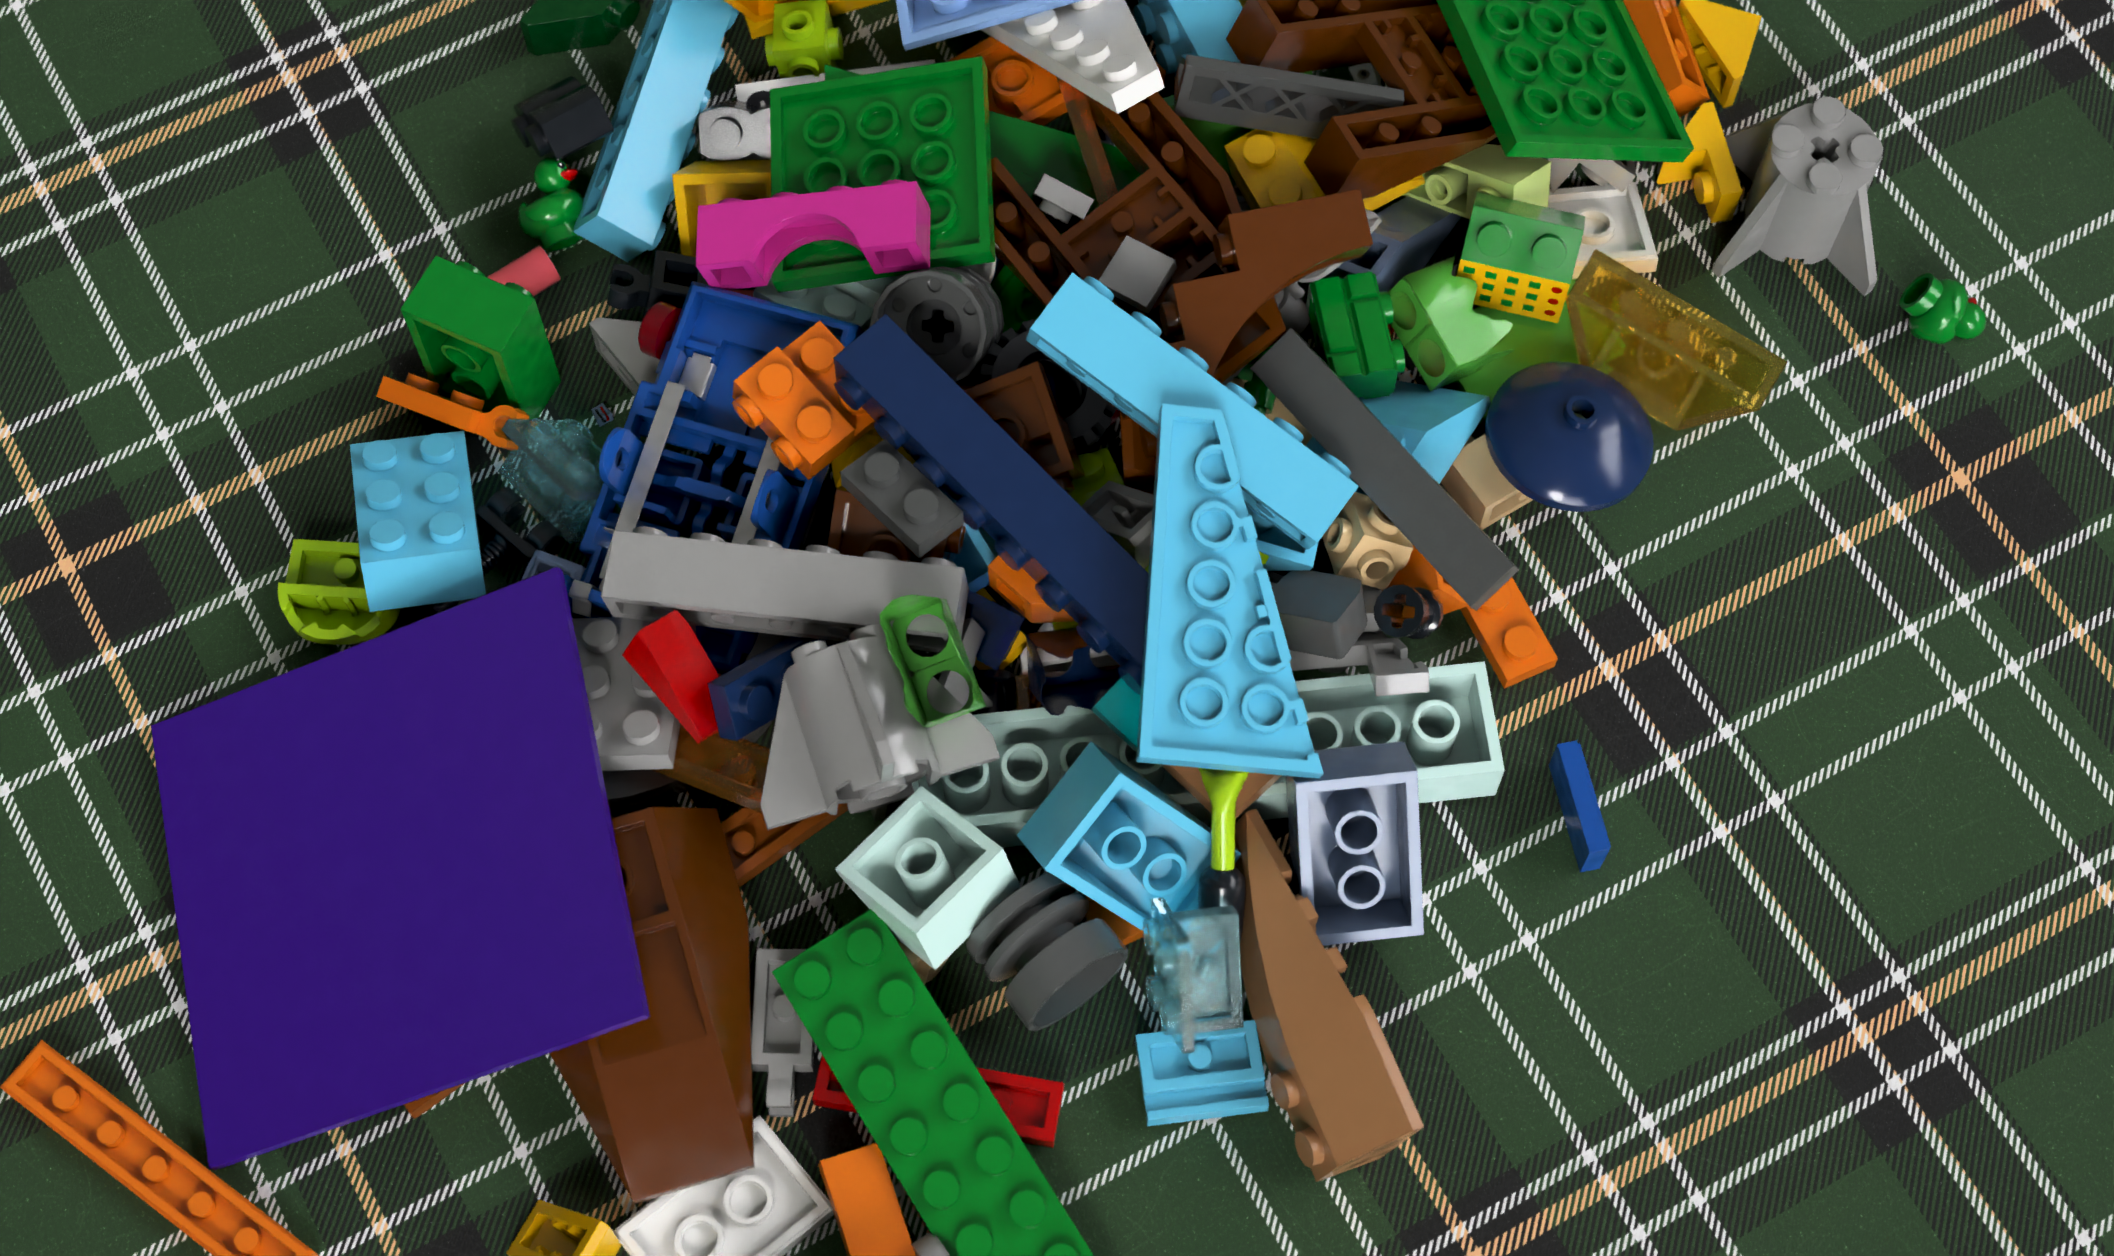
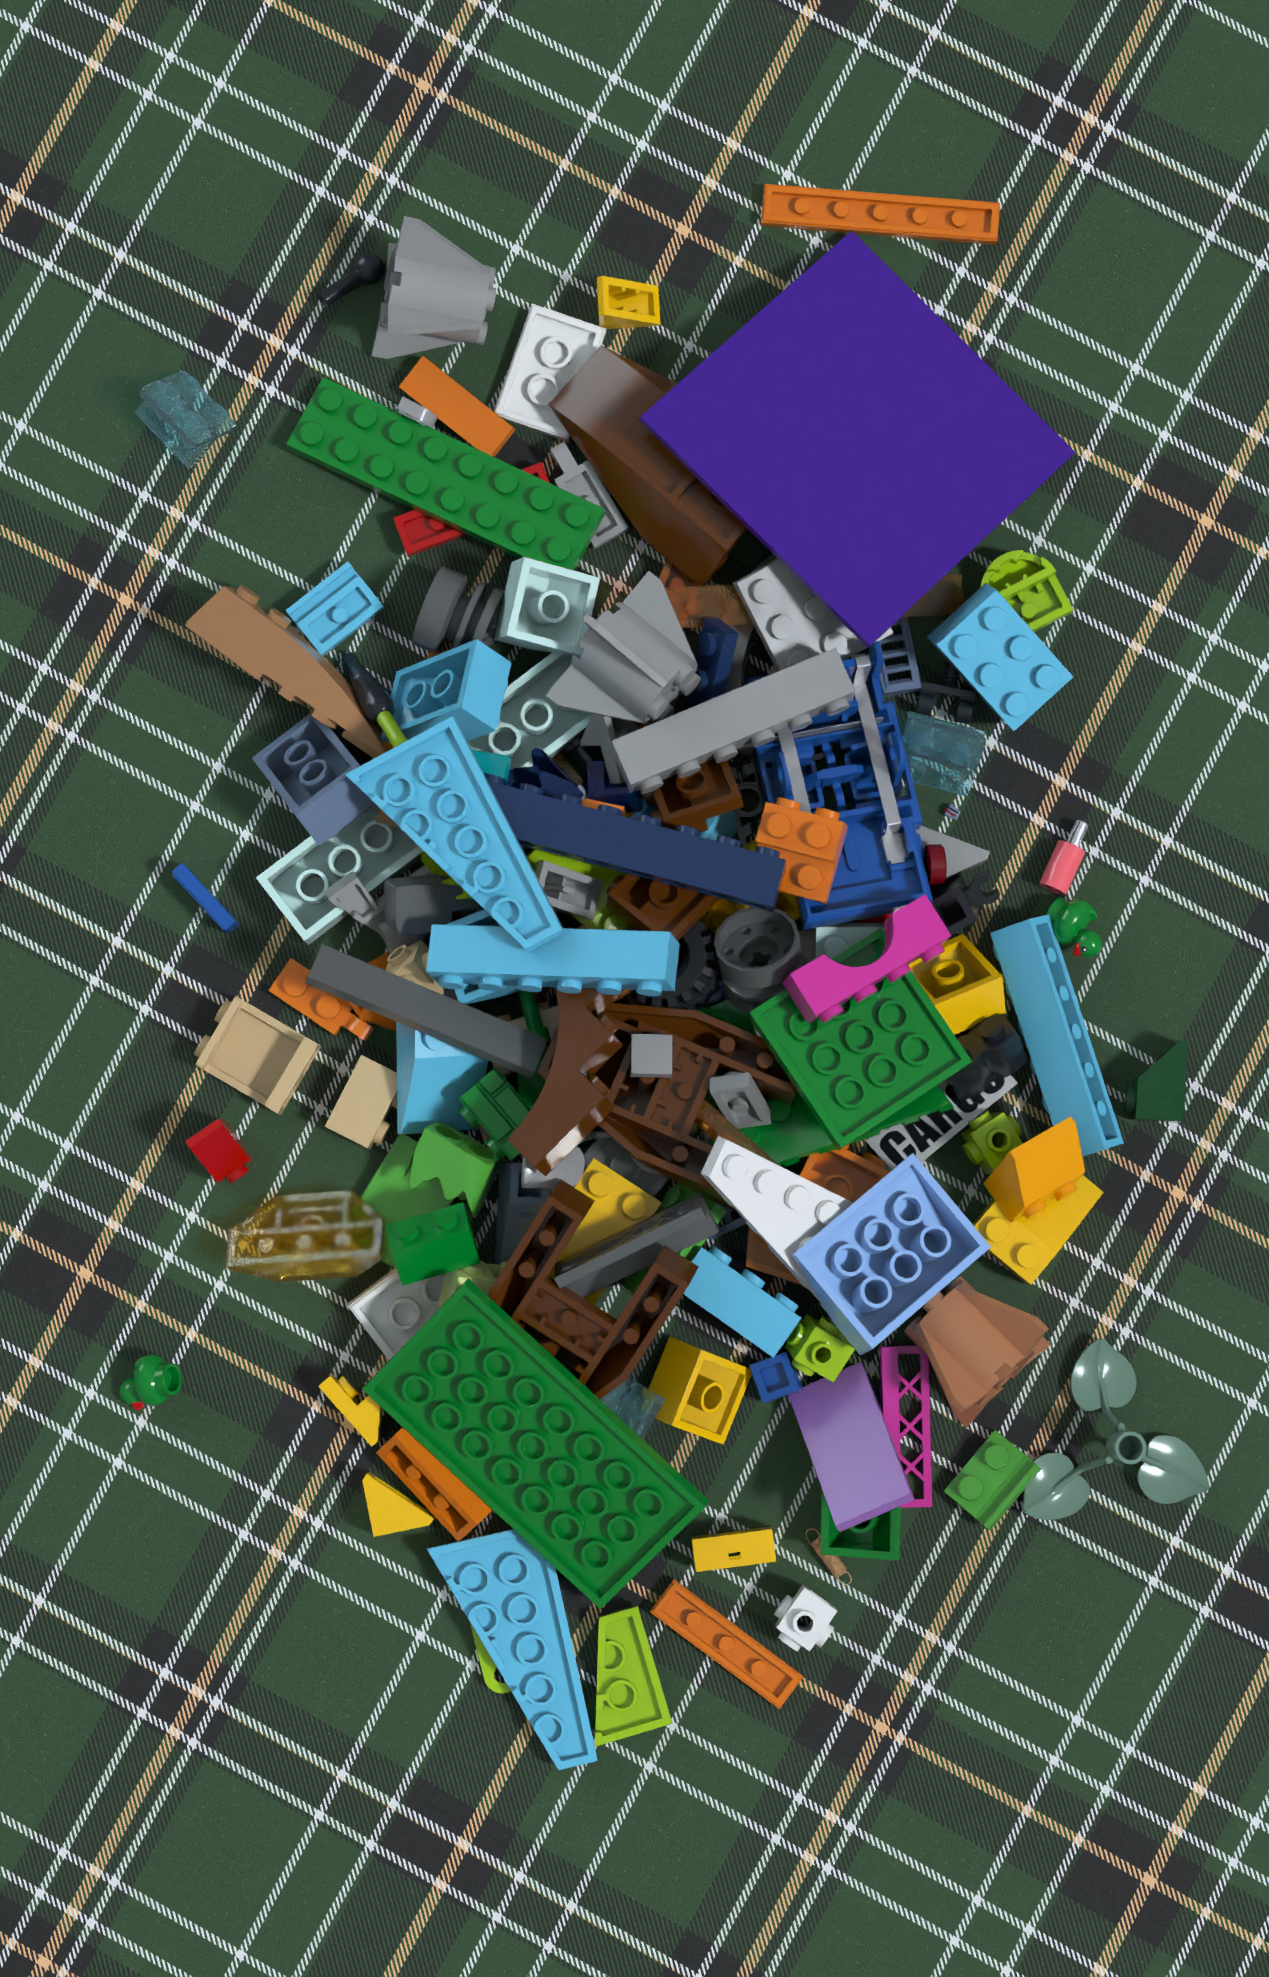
camera: 150 degrees right, 20 degrees up
(459, 410) = (1037, 746): orange plate -> none
(481, 337) = (1037, 788): green brick -> none
(561, 119) = (1109, 986): black brick -> none
(677, 671) = (764, 635): red slope -> none
(902, 498) = (696, 808): dark grey plate -> none
(951, 658) = (605, 687): bright green piece -> none
(1195, 970) = (366, 649): clear light blue bracket -> none
(1390, 606) = (370, 938): black bush -> none
(1563, 457) = (363, 1129): dark blue dish -> none
(1610, 592) = (256, 1054): none -> tan panel
(1723, 505) = (221, 1152): none -> red slope
(1807, 190) = (295, 1401): light grey brick -> none

